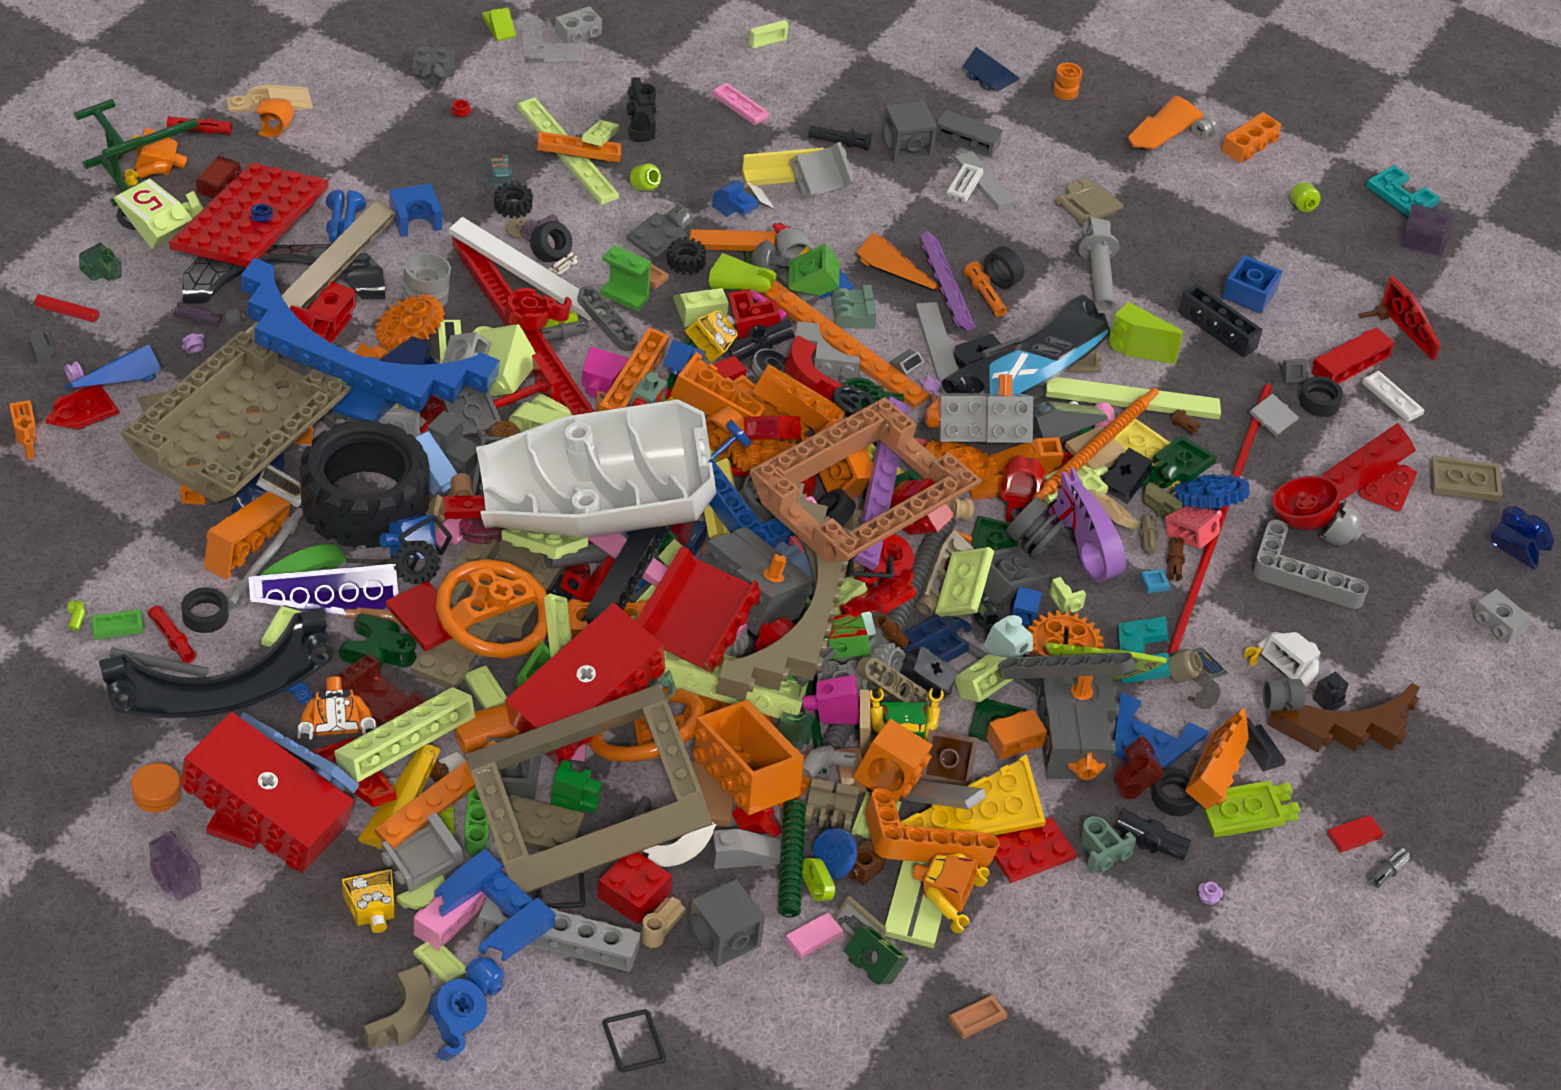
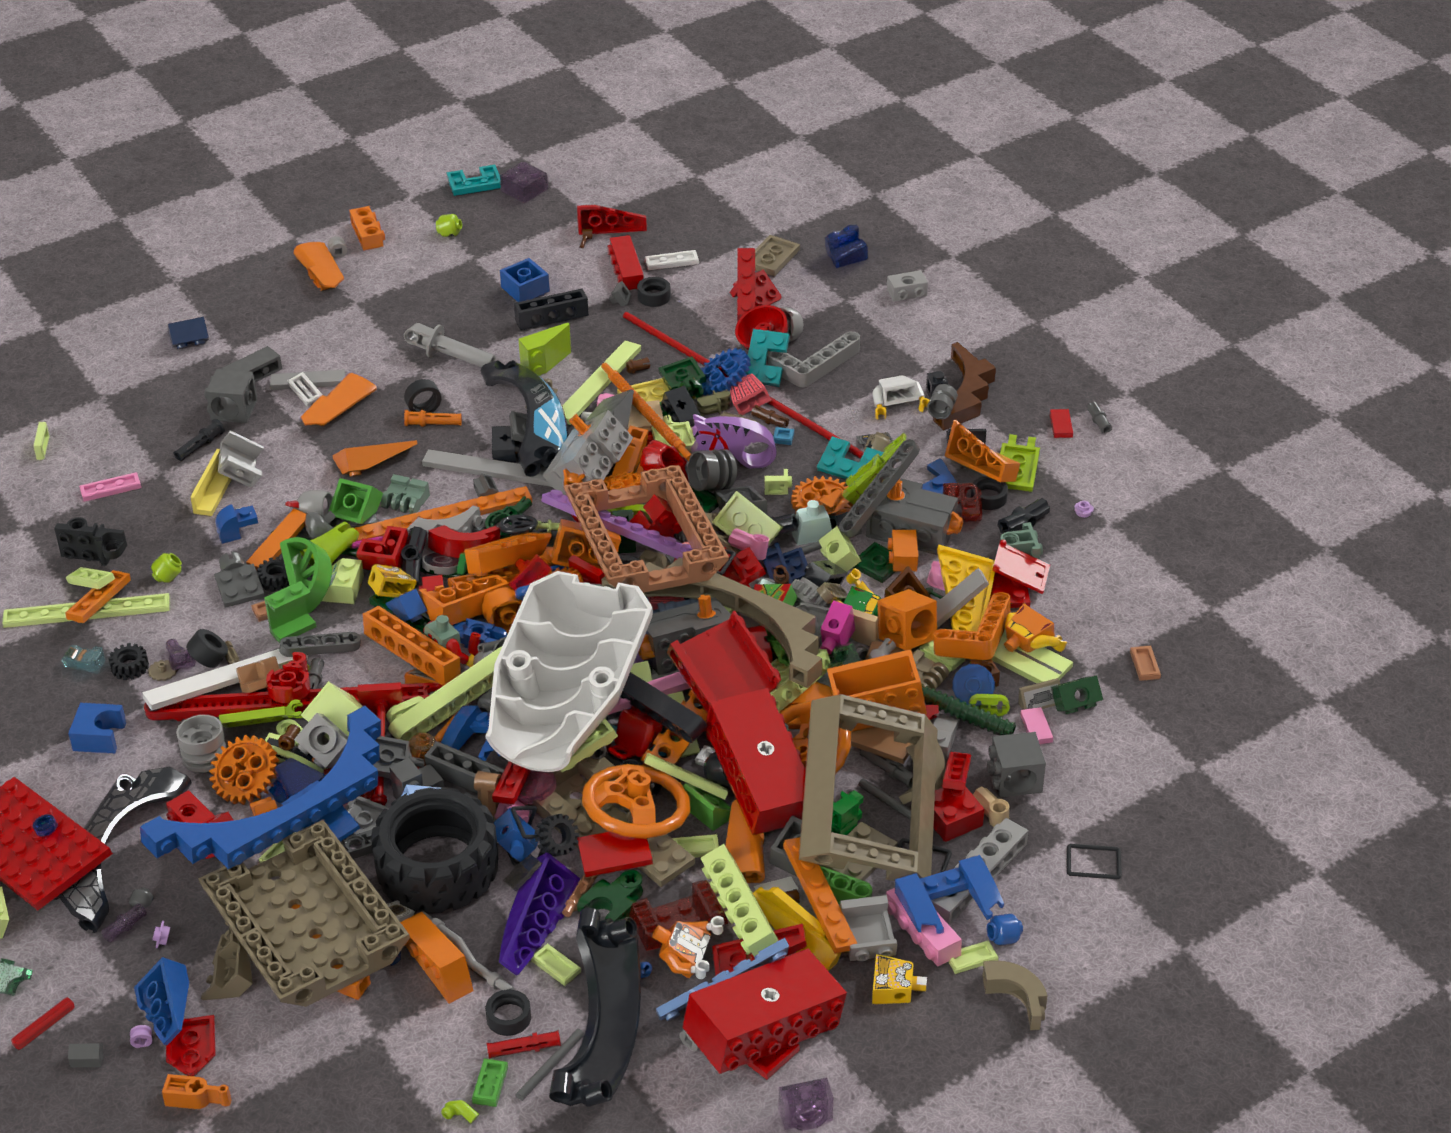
camera: 60 degrees left, 5 degrees down
(156, 787) = (702, 1100): orange head -> none
(309, 559) = (492, 932): bright green slope -> none
(335, 201) = (80, 789): blue piece -> none
(337, 257) = (151, 804): beam -> none
(420, 897) = (905, 946): yellowish green tile -> none
(448, 331) = (287, 740): none -> reddish brown pin
(452, 1022) = (1040, 954): blue piece -> none
(477, 303) = (262, 715): none -> lime tile
(541, 284) = (253, 675): none -> medium nougat panel
(601, 370) = (380, 665): dark pink torso -> none
(684, 869) = (956, 771): none -> red tile
(687, 269) = (297, 566): none -> bright green window
(931, 384) = (518, 481): lavender plate -> none
(936, 593) = (743, 540): none -> bright pink piece
(945, 277) = (401, 435): medium lavender plate -> none
(950, 207) = (342, 397): none -> orange panel
(1027, 605) = (778, 504): blue brick -> none
(1035, 638) = (832, 500): none -> orange slope
(1056, 845) = (1021, 567): none -> container
(1067, 81) = (235, 295): orange wheel -> none
(1089, 198) = (371, 334): dark tan piece -> none
(1274, 415) = (657, 320): light grey piece -> none
(1275, 506) = (760, 344): none -> teal plate

